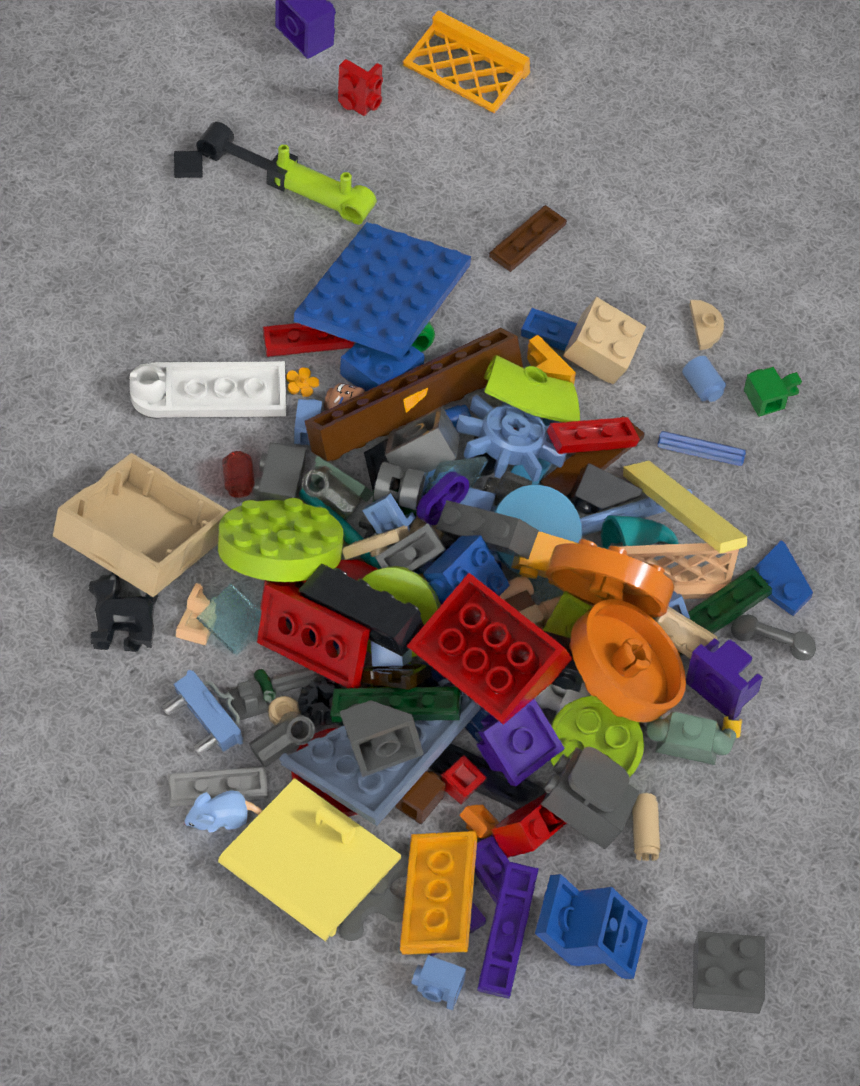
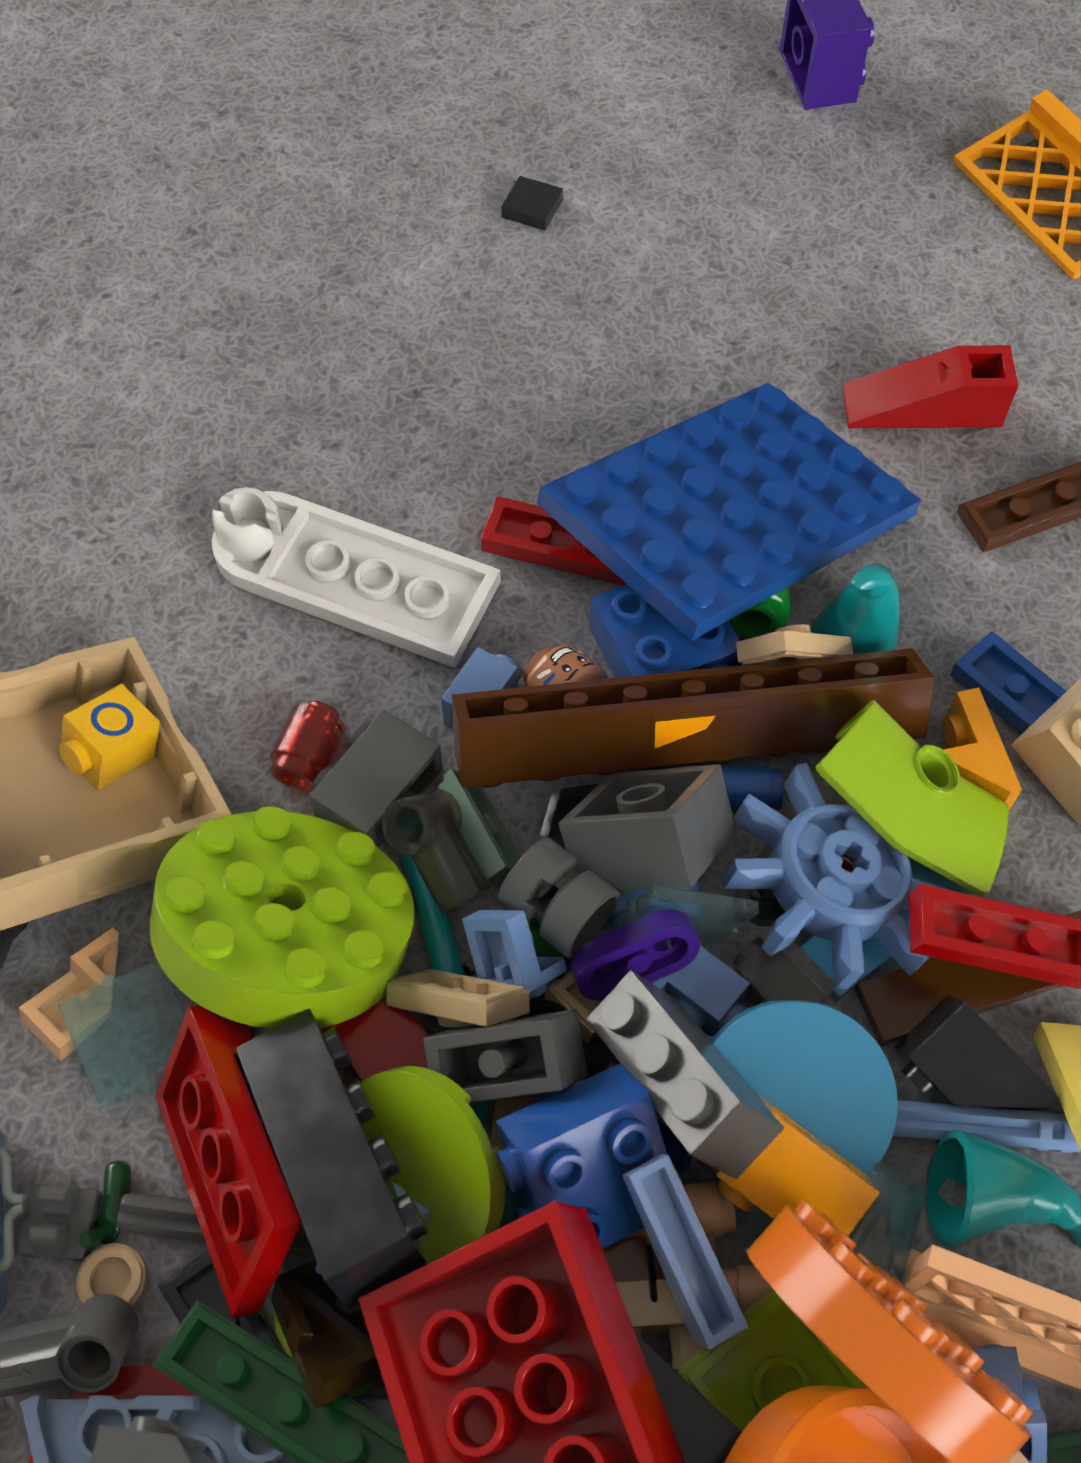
camera: 30 degrees right, 5 degrees up
(148, 500) = (108, 737): none -> yellow brick
(286, 173) = (675, 262): lime piece -> none
(302, 382) = (516, 617): light orange plant -> none
(308, 699) = (161, 1280): black gear -> none
(359, 88) = (861, 164): red bracket -> none
(444, 345) = (791, 643): none -> tan plate
(454, 198) = (936, 391): none -> red slope
(468, 322) = (864, 611): none -> teal hat
(520, 591) = (684, 1253): none -> light blue piece

